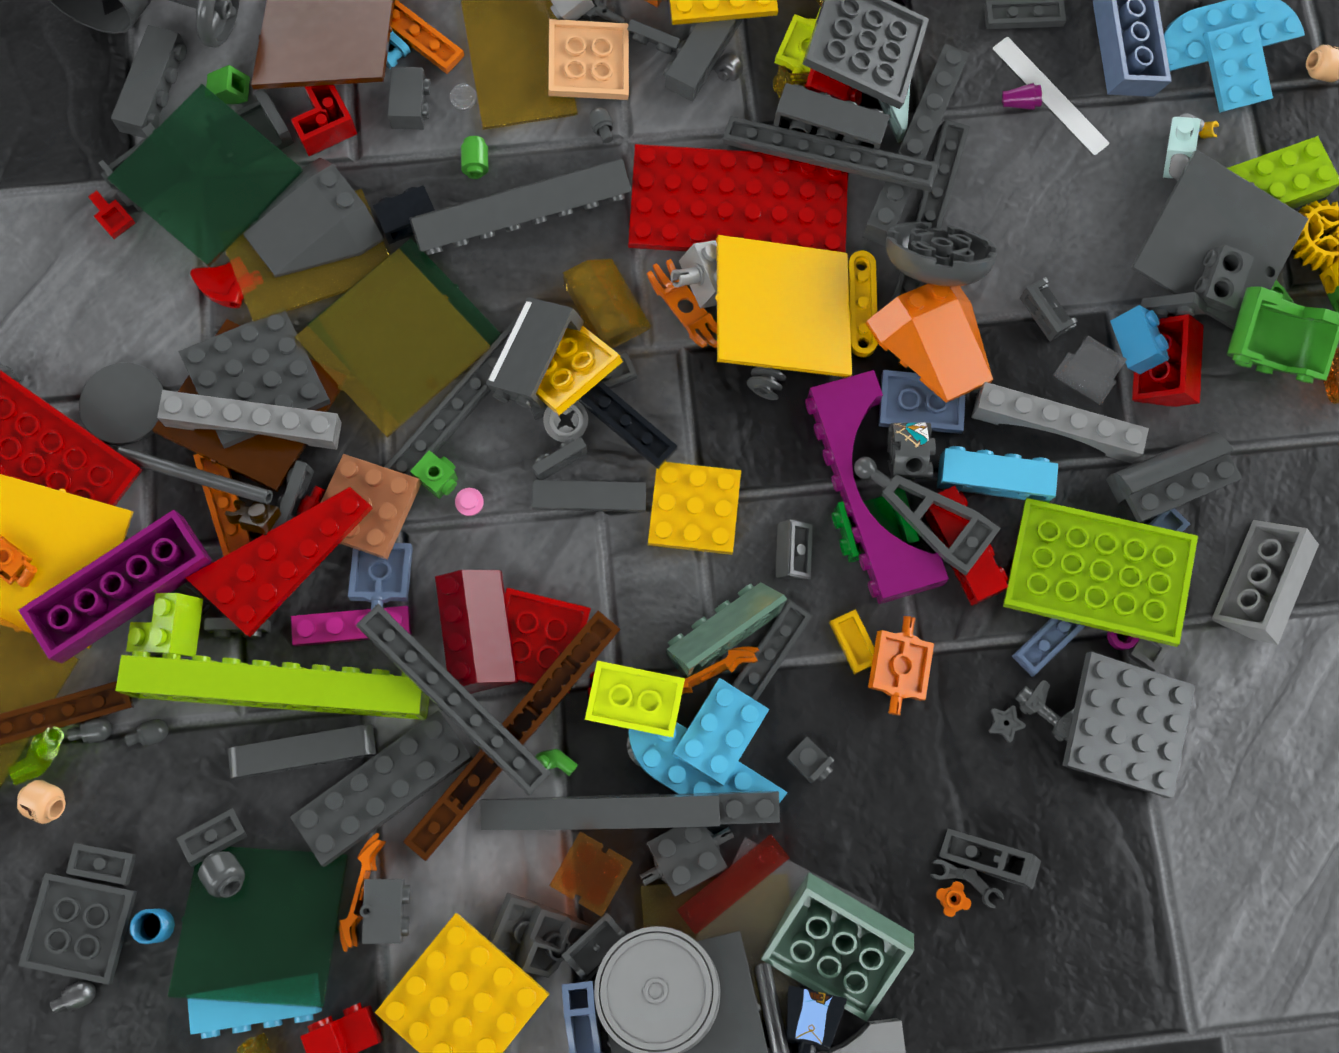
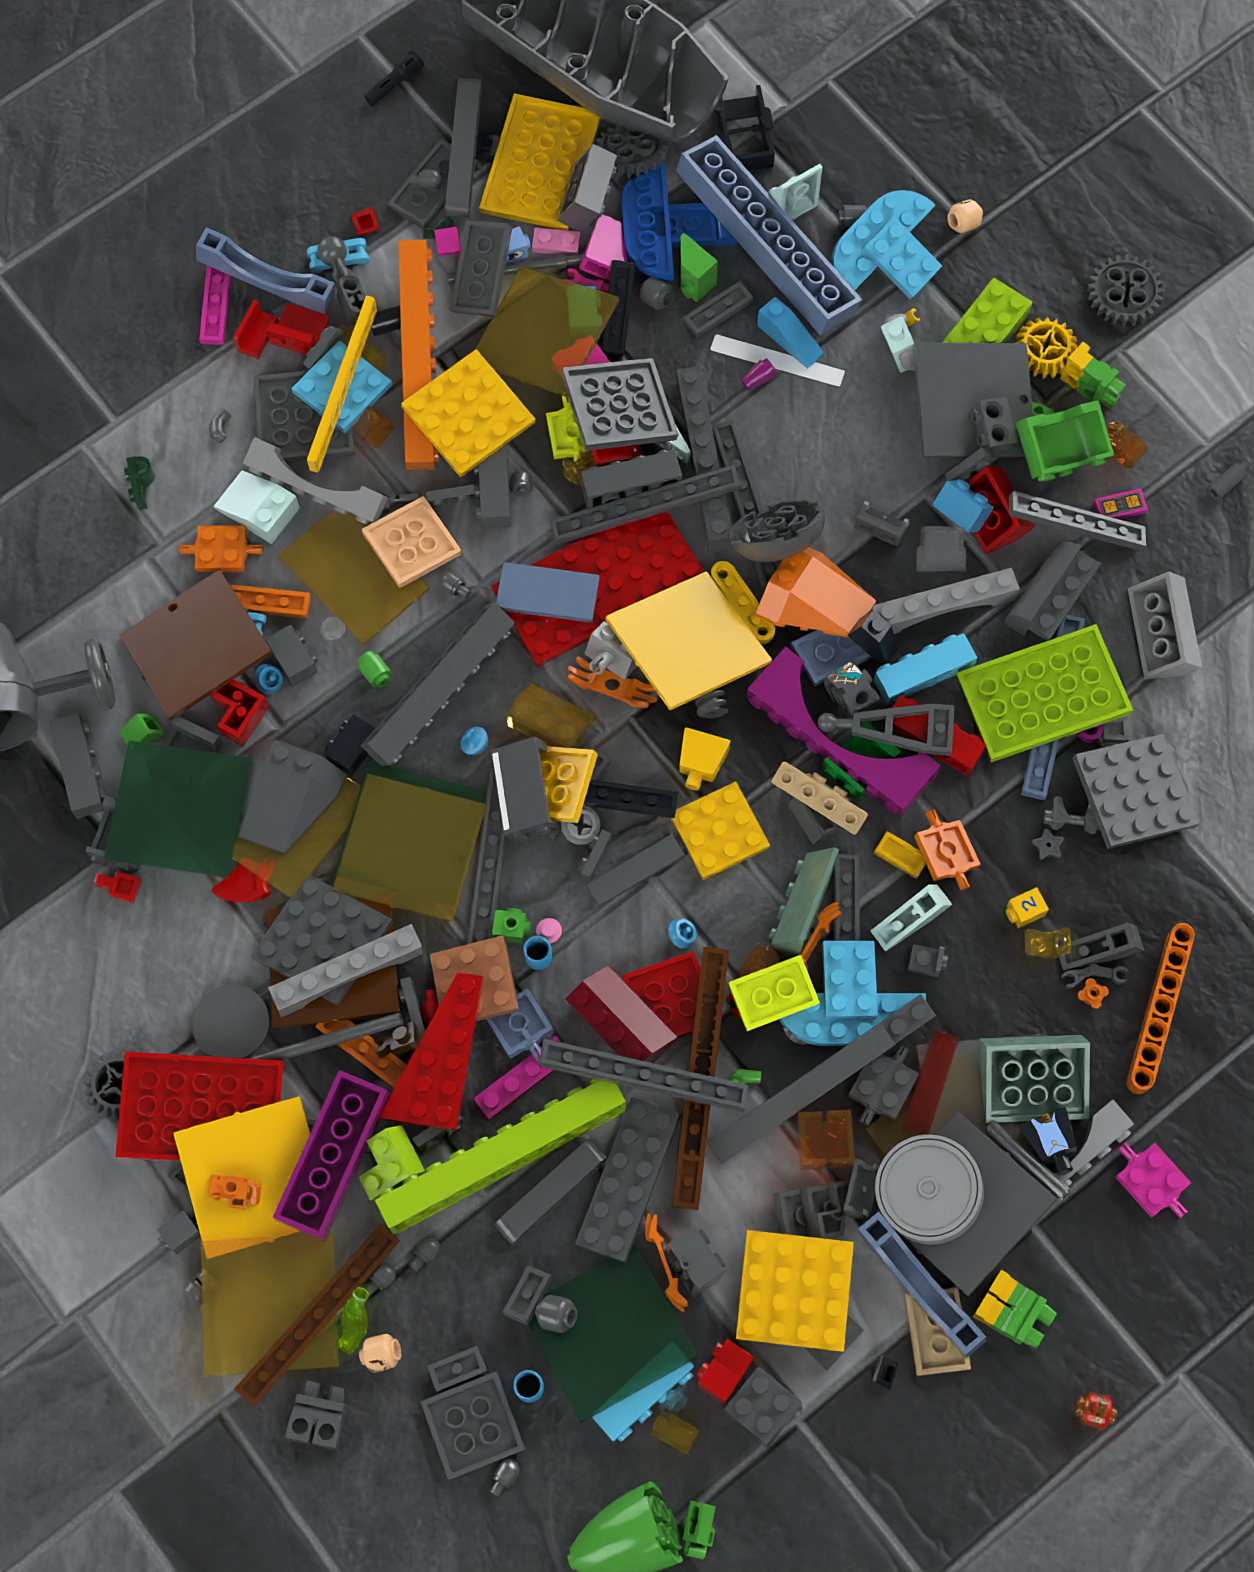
camera: 25 degrees left, 5 degrees down
(278, 1032) = (674, 1400): none -> clear light blue plate
(373, 107) = (268, 678): none -> dark azure hat
(439, 503) = (537, 941): none -> dark azure piece
(520, 280) = (474, 741): none -> dark azure hat
(591, 583) = (682, 933): none -> dark azure hat
(646, 657) = (759, 959): none -> clear orange brick
(682, 181) = (548, 592): none -> sand blue tile
(723, 426) = (702, 757): none -> yellow torso
(812, 536) = (820, 796): none -> tan bracket
(823, 708) = (911, 916): none -> light aqua slope
(939, 819) = (1046, 943): none -> clear yellow bracket
(942, 772) = (1026, 908): none -> yellow brick
(967, 414) = (875, 637): none -> black slope
(997, 959) = (1155, 1019): none -> orange beam
(1078, 73) = (788, 332): none -> dark azure slope
(1245, 422) = (1077, 521): none -> dark grey plate
(1299, 434) = (1121, 504): none -> tile

